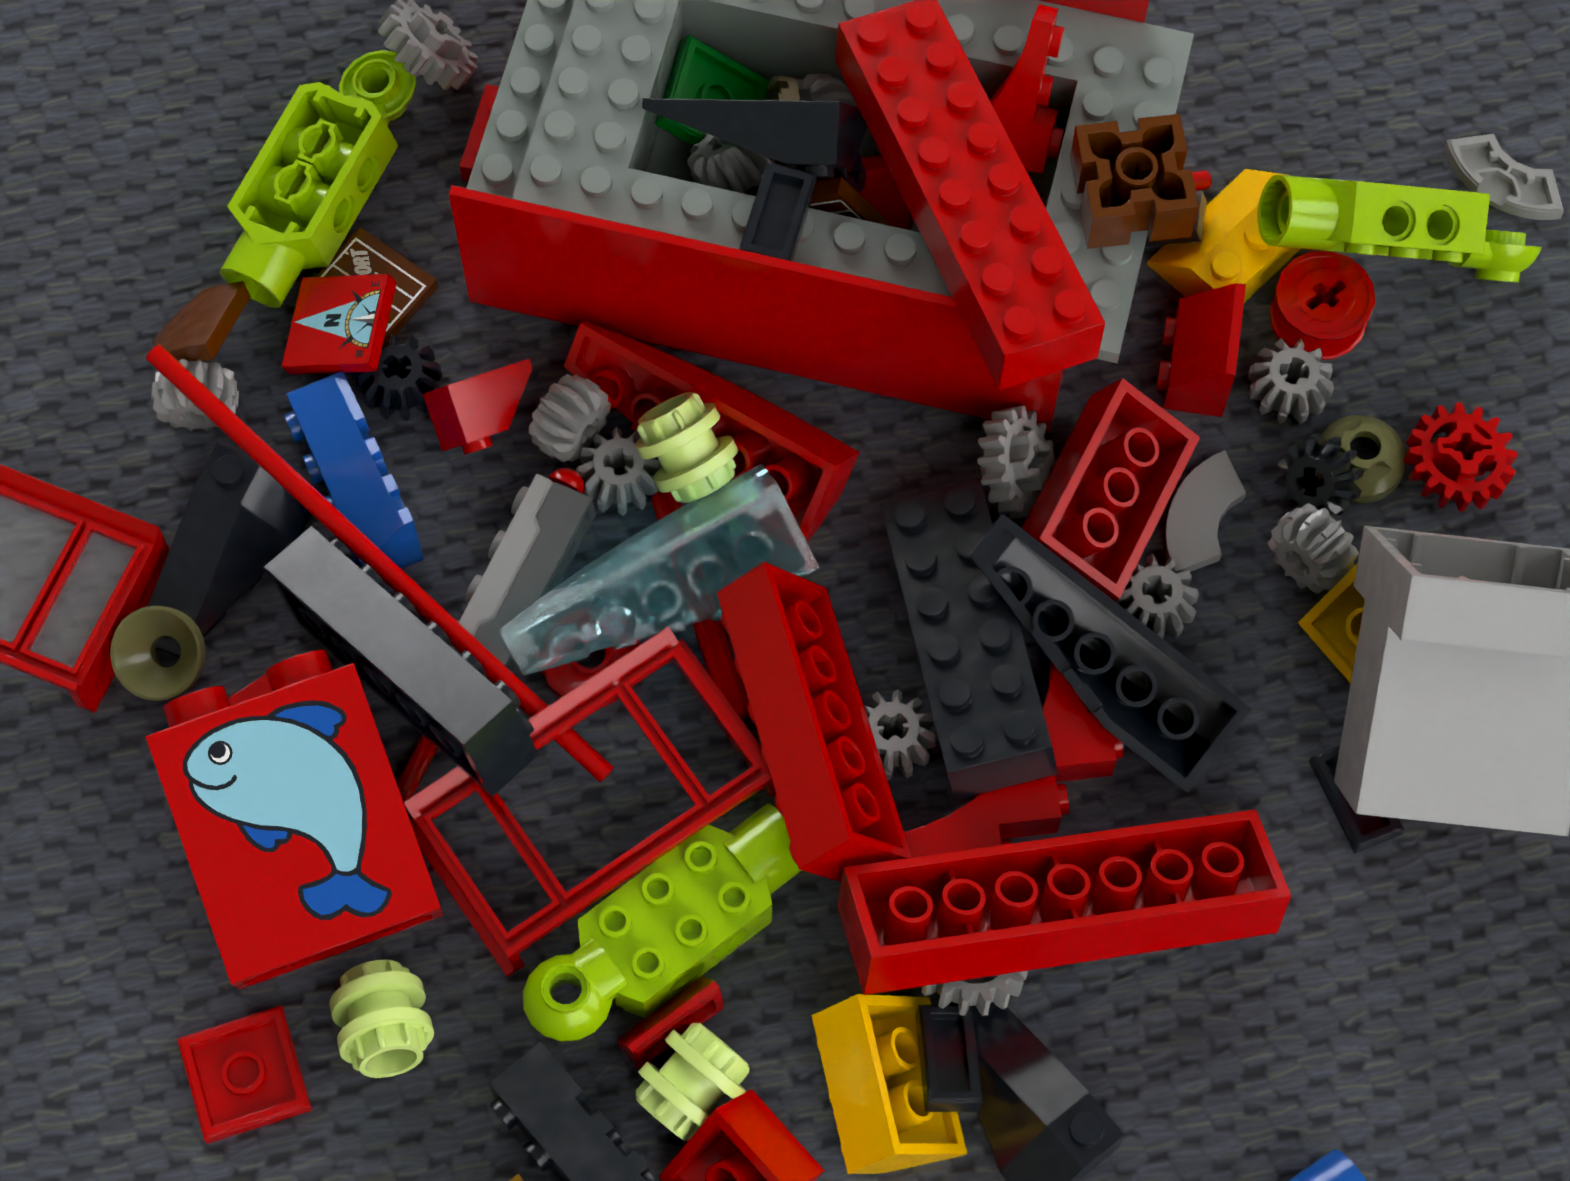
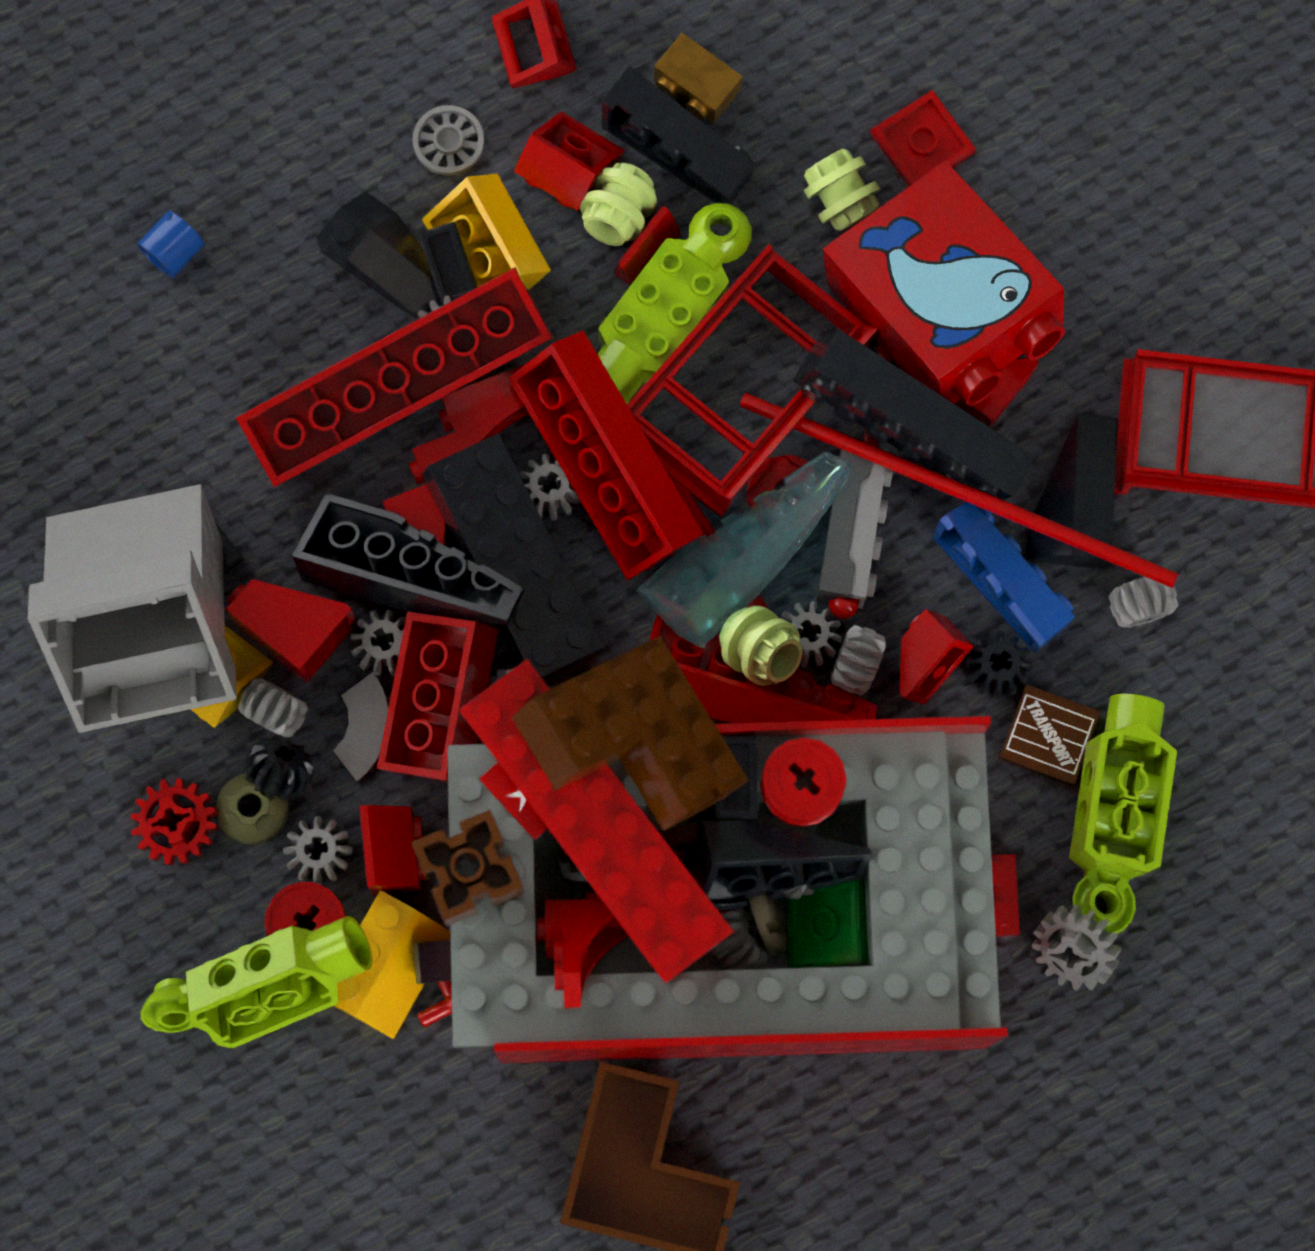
camera: 160 degrees right, 10 degrees up
(135, 655) = (1094, 390): olive piece -> none
(204, 322) = (1162, 655): reddish brown slope -> none
(339, 324) = (1056, 684): red tile -> none
(716, 160) = (809, 758): none -> red piece
(896, 262) = (647, 718): none -> reddish brown piece
(1270, 636) = (291, 624): none -> red slope
(1511, 185) = (181, 1086): light grey tile -> none

